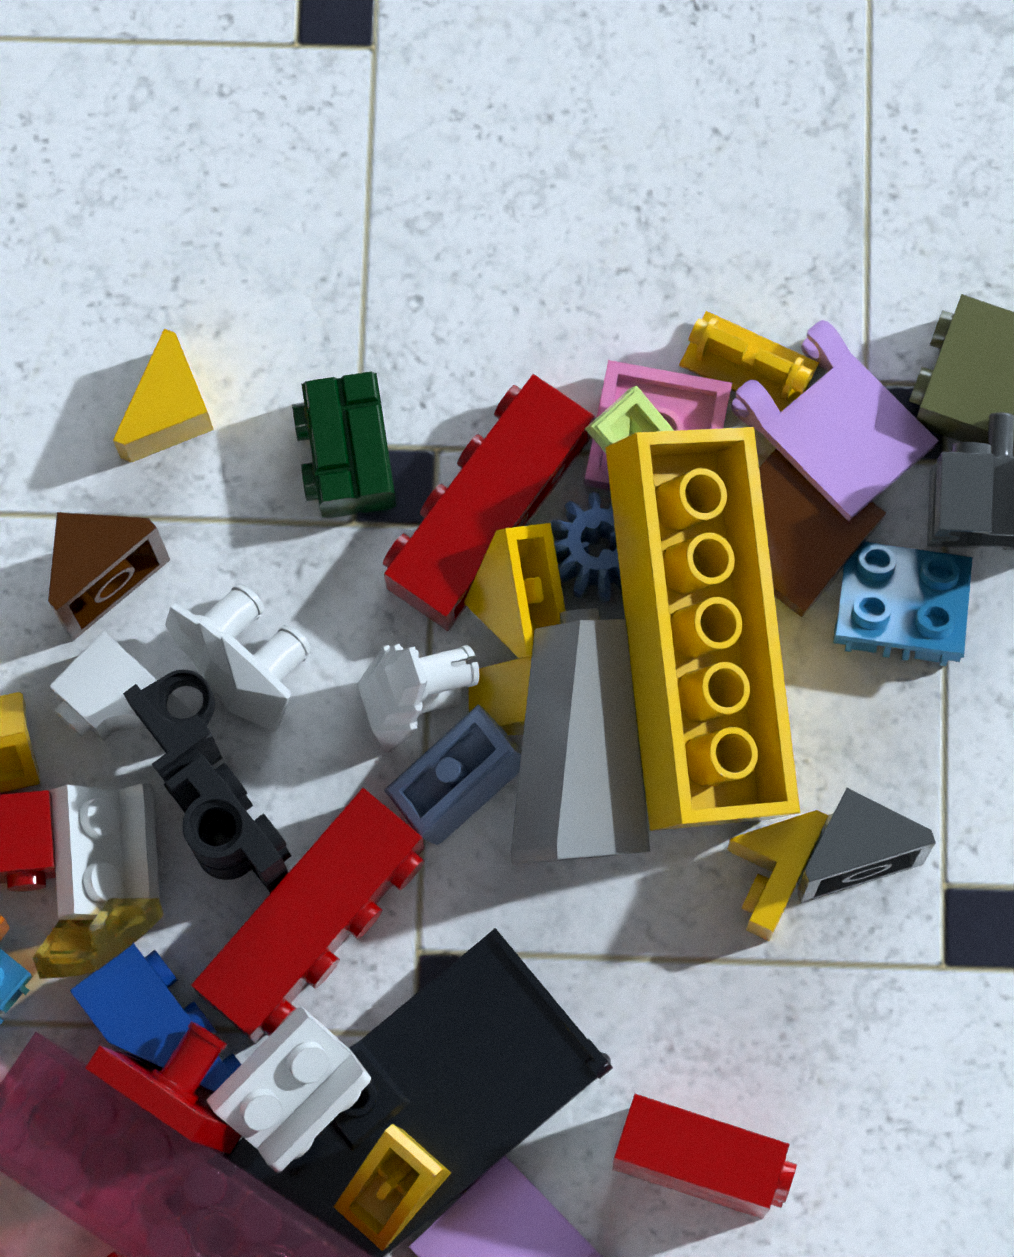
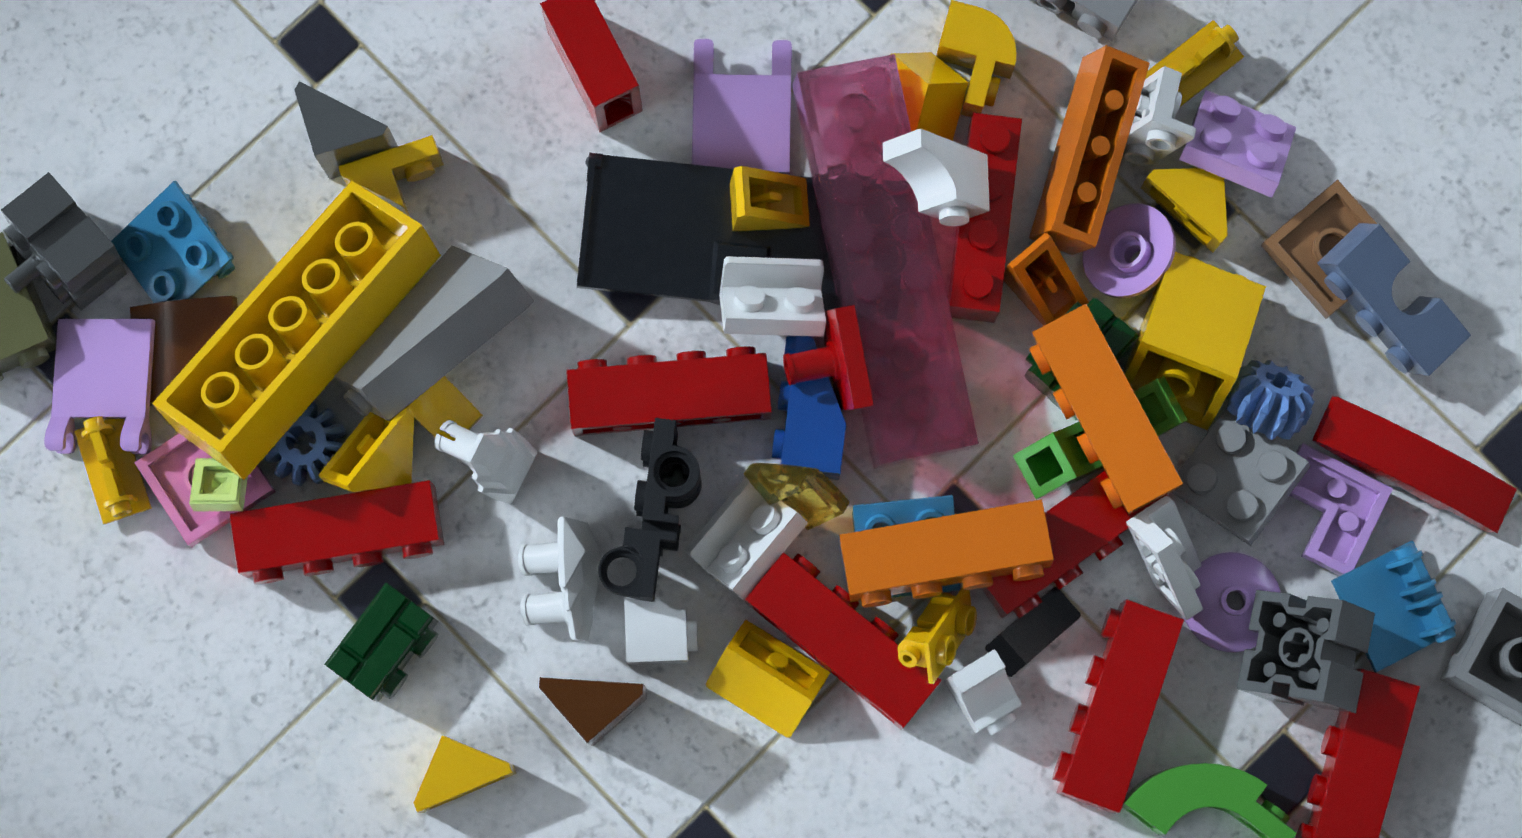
camera: 140 degrees left, 5 degrees up
(456, 776) = (513, 393): sand blue slope -> none

